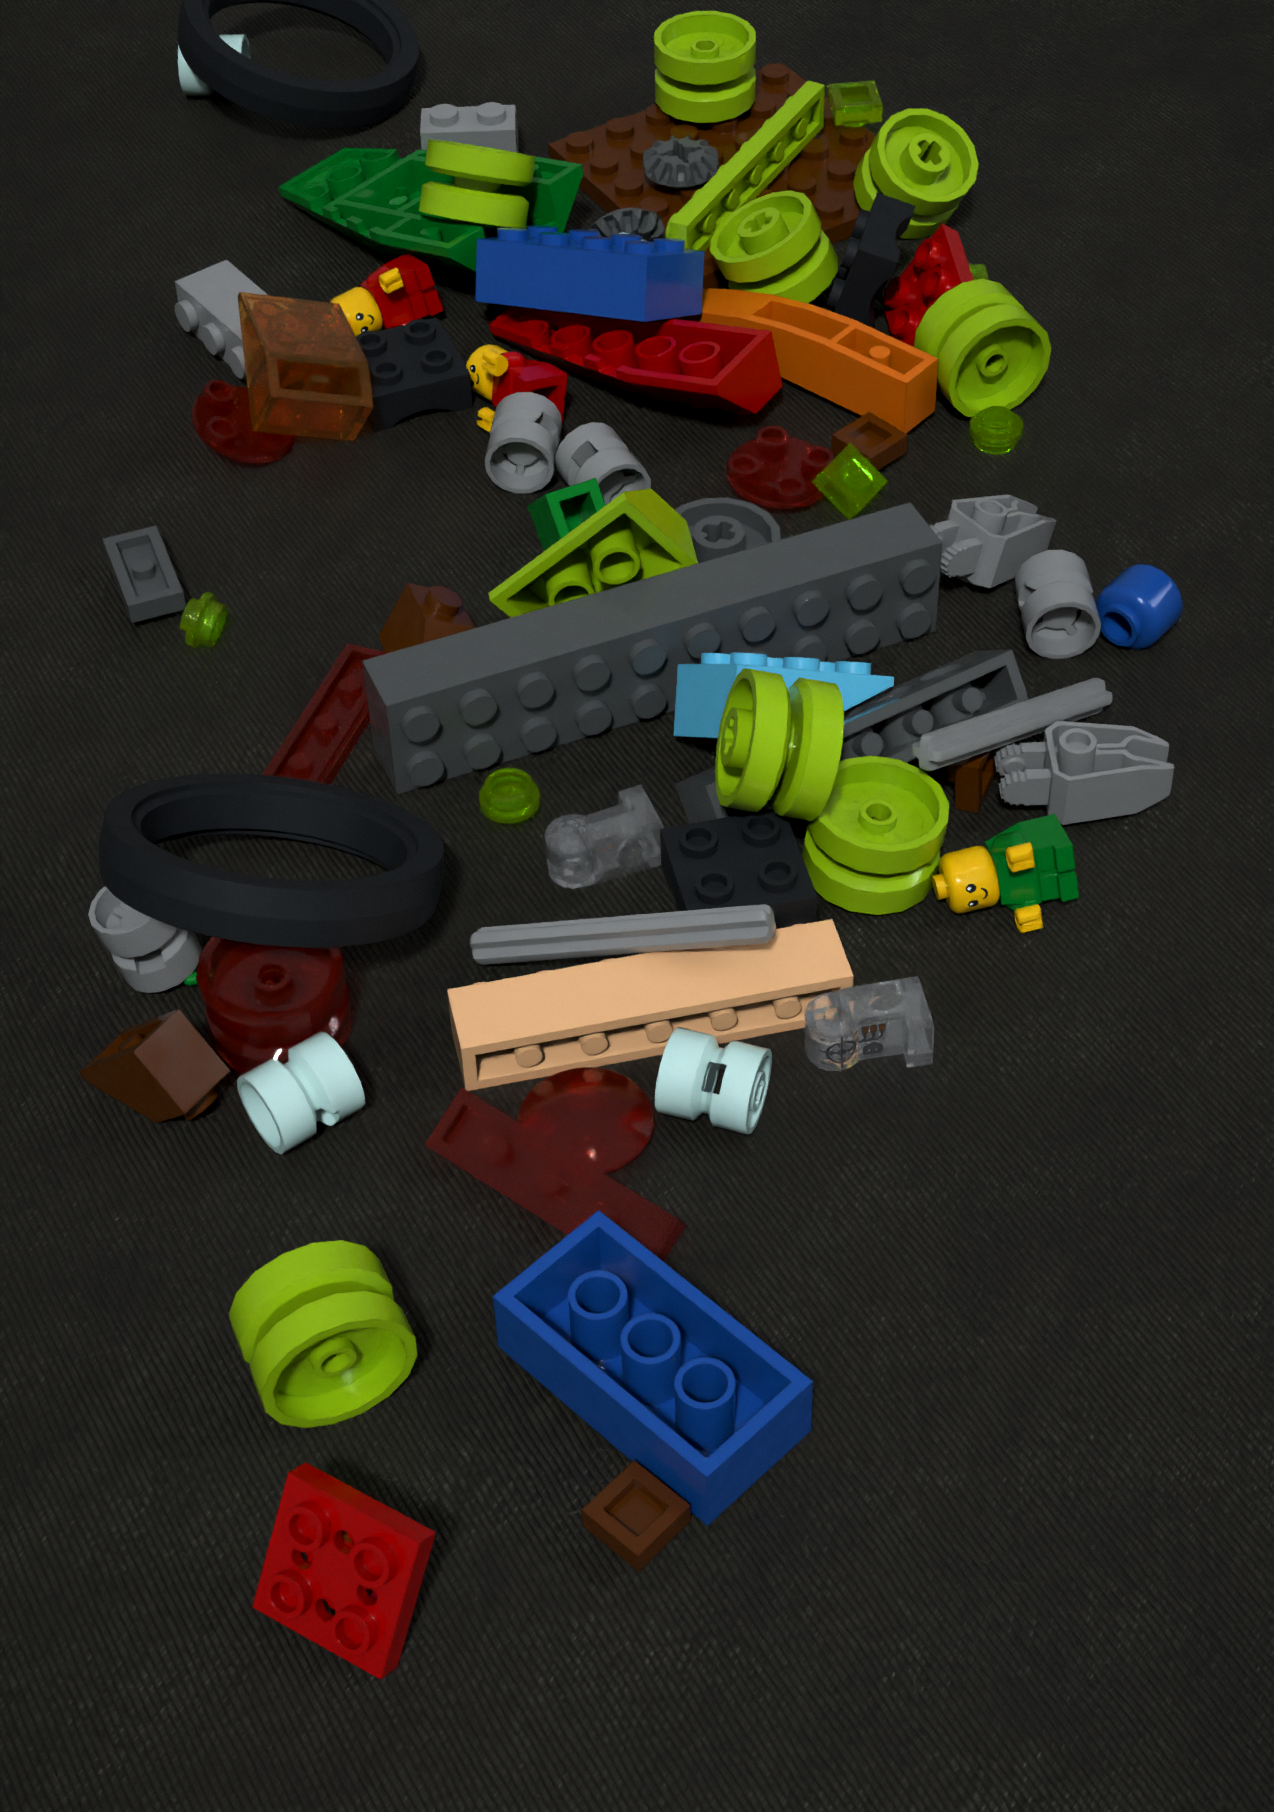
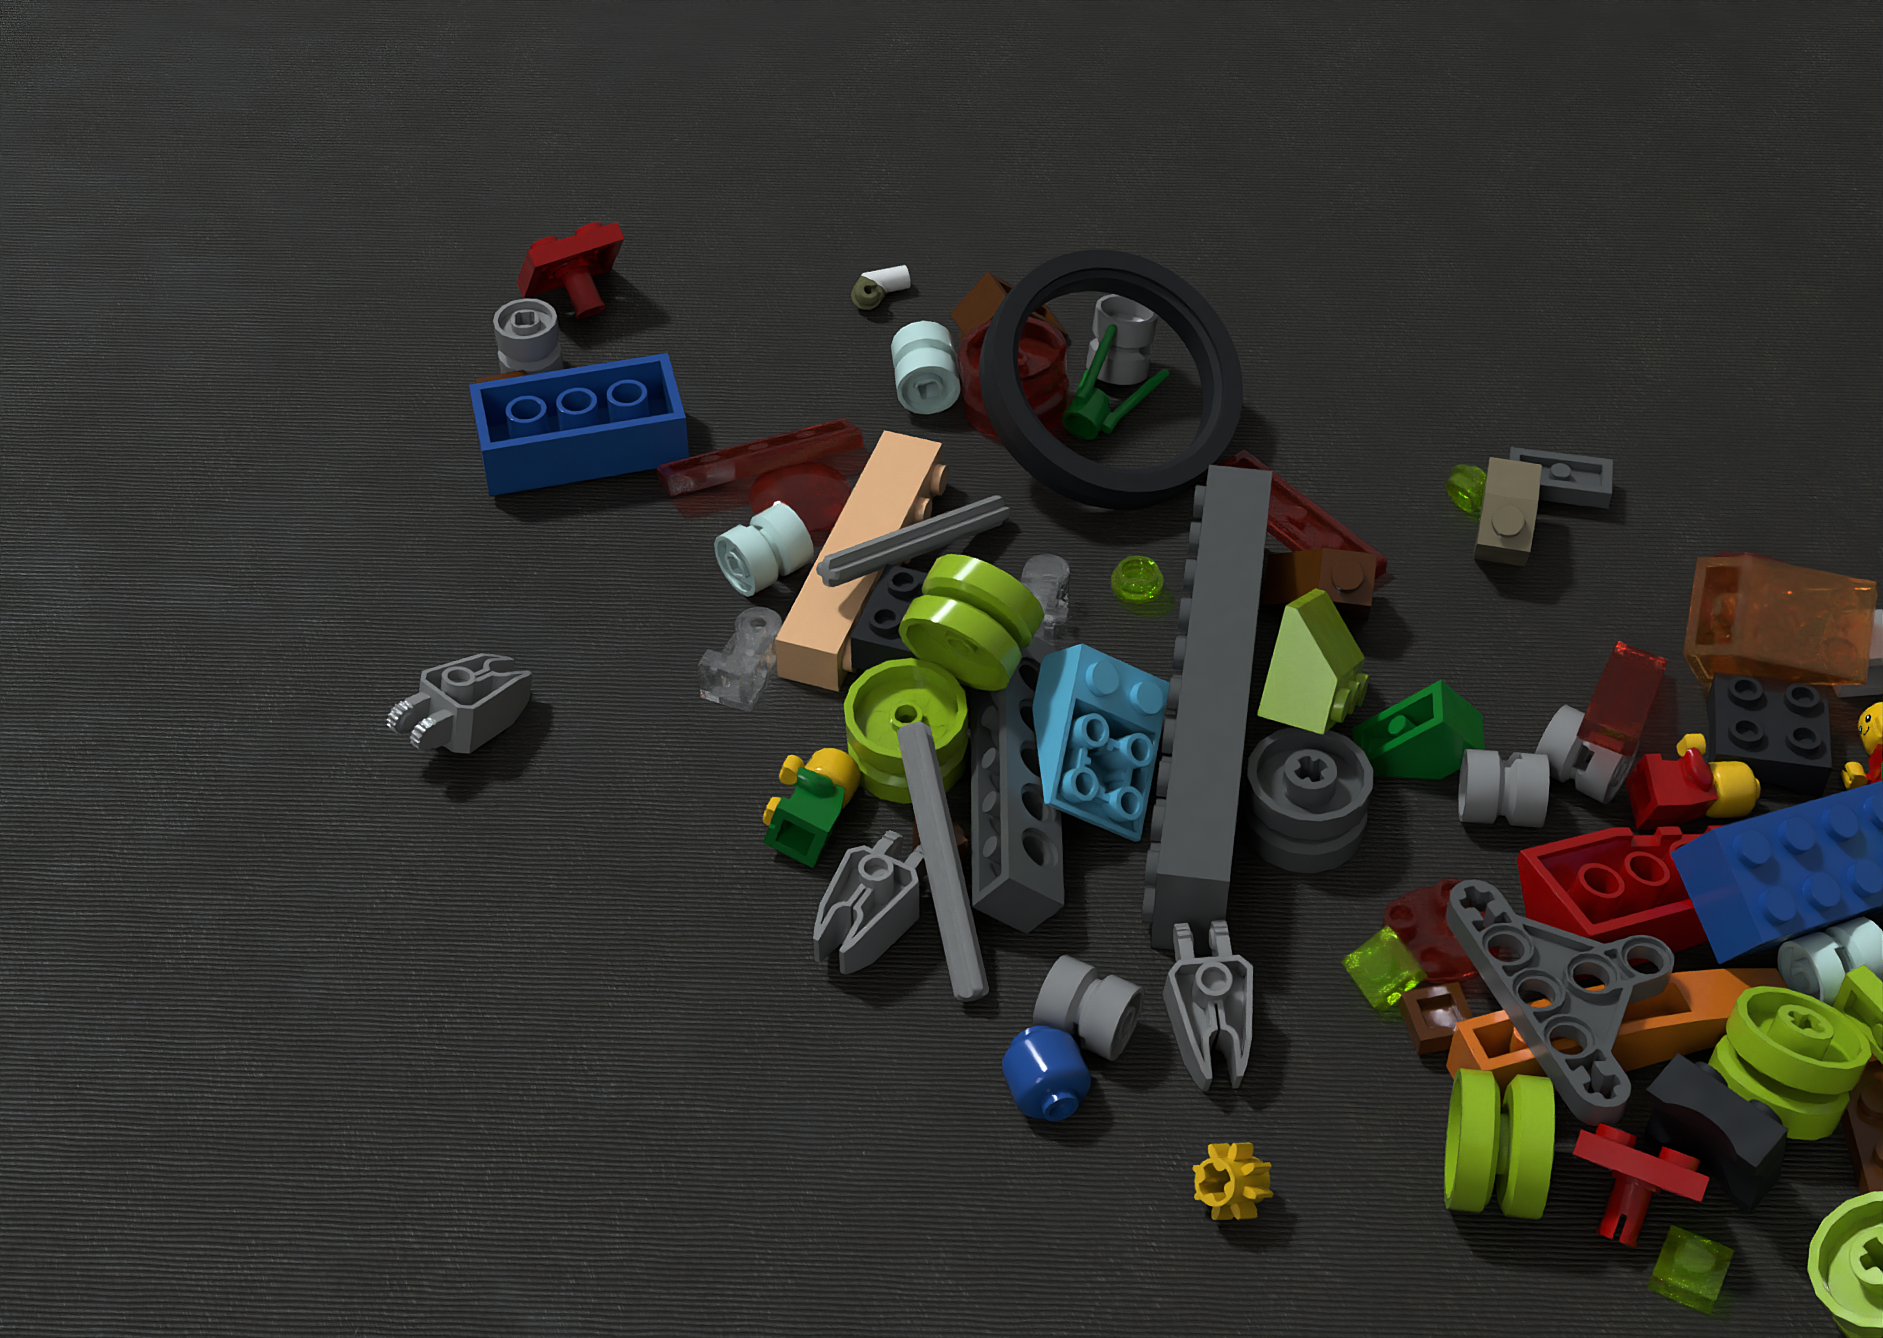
camera: 120 degrees right, 0 degrees up
(144, 1253) = (874, 285): none -> arm
(248, 560) = (1508, 511): none -> dark tan slope
(322, 1334) = (718, 296): lime wheel -> none
(453, 423) = (1622, 699): none -> clear red tile
(536, 1526) = (528, 337): none -> light grey wheel
(841, 320) = (1548, 966): none -> dark grey beam
(996, 430) = (1404, 1142): clear neon green plate -> none
(1131, 477) = (1232, 1181): none -> yellow gear
(1155, 1202) = (463, 703): none -> light grey hinge

